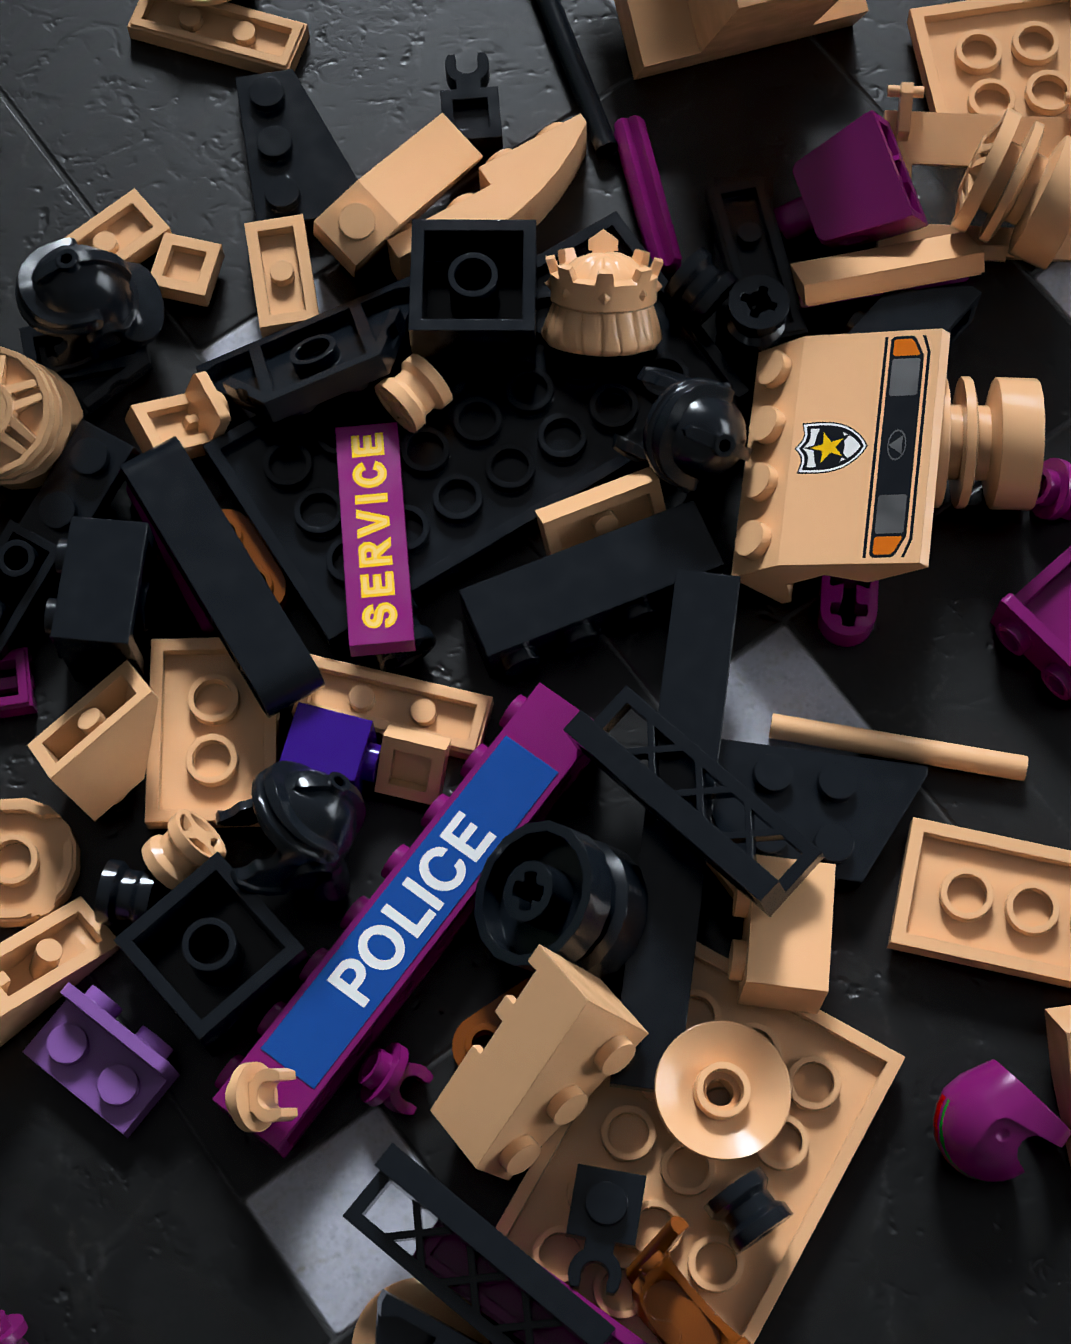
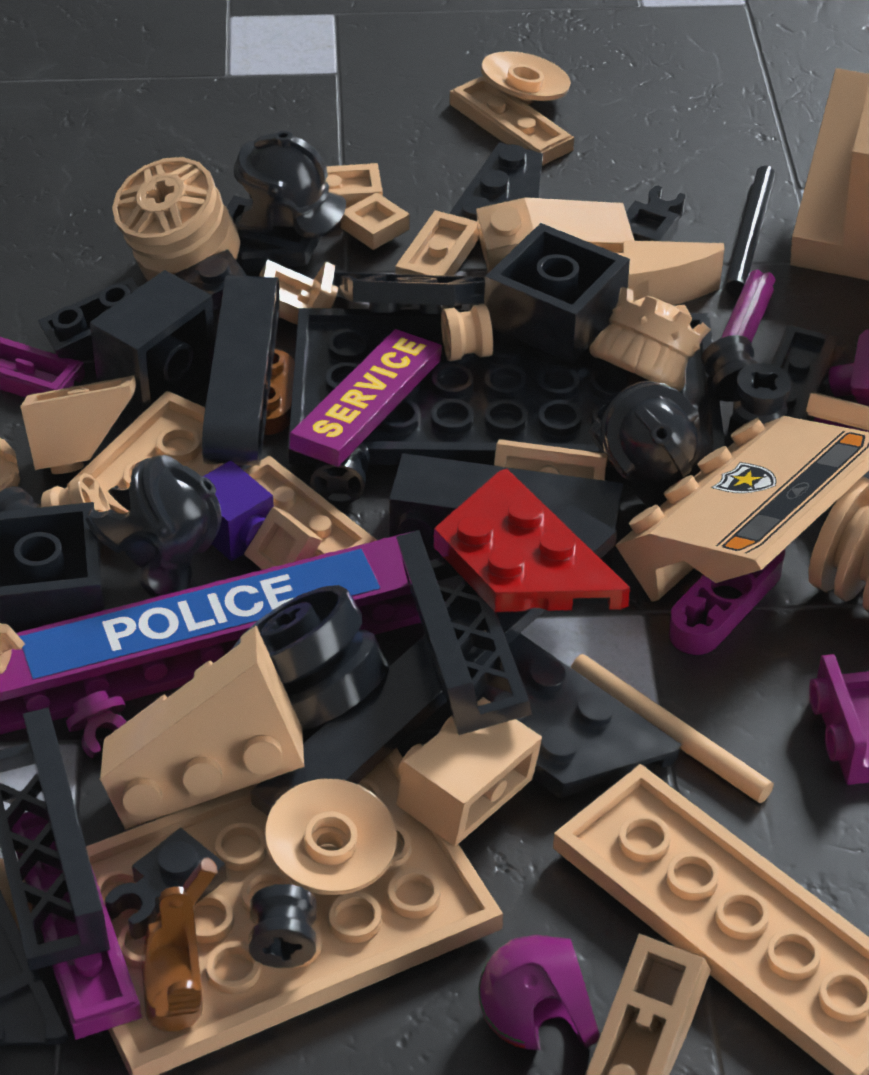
camera: 30 degrees right, 25 degrees down
(683, 667) = (522, 552): none -> red wing

